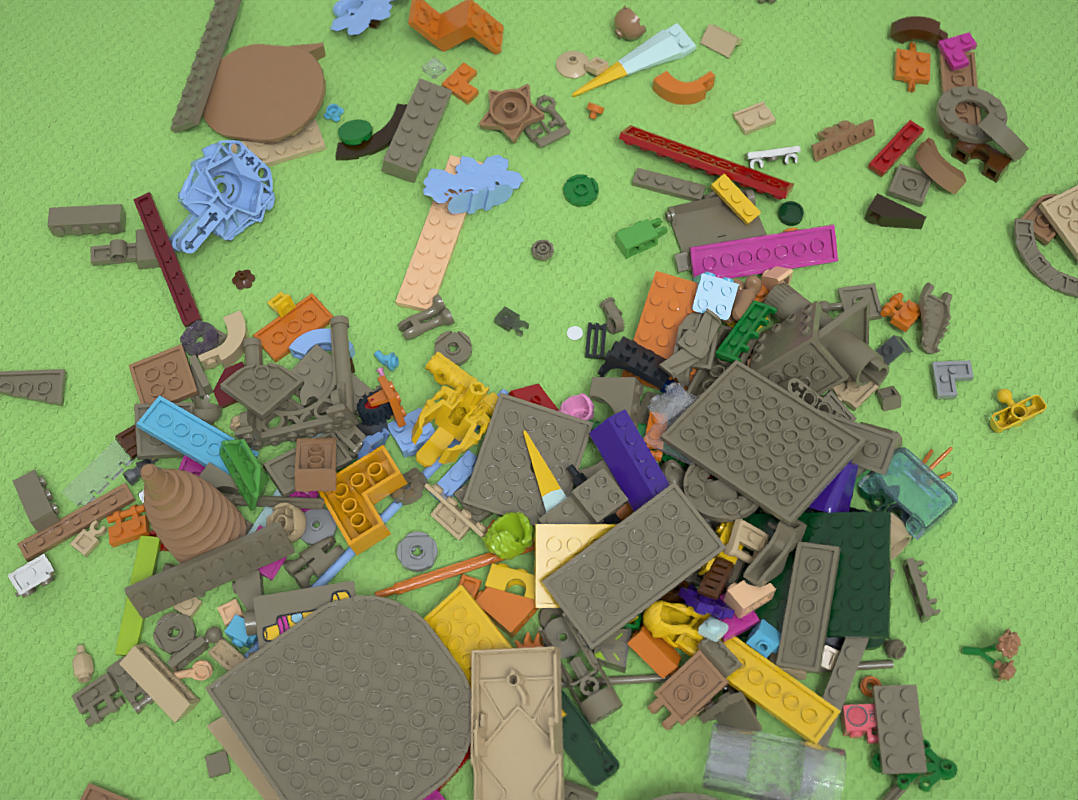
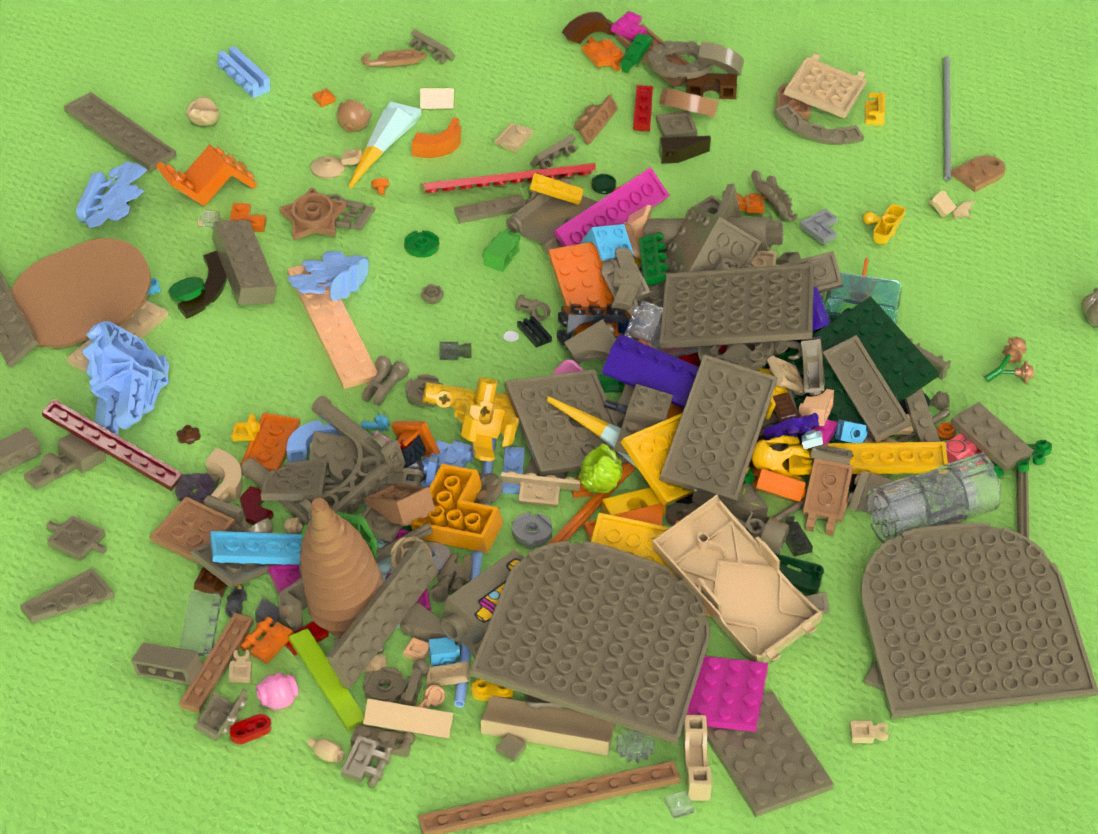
camera: 40 degrees left, 20 degrees down
(48, 604) = (249, 729): none -> red plate
(80, 331) = (76, 537): none -> dark tan plate
(92, 582) = (277, 691): none -> bright pink hair
(631, 711) = (797, 539): none -> clear smoke plate
(939, 82) = (635, 51): none -> green hinge

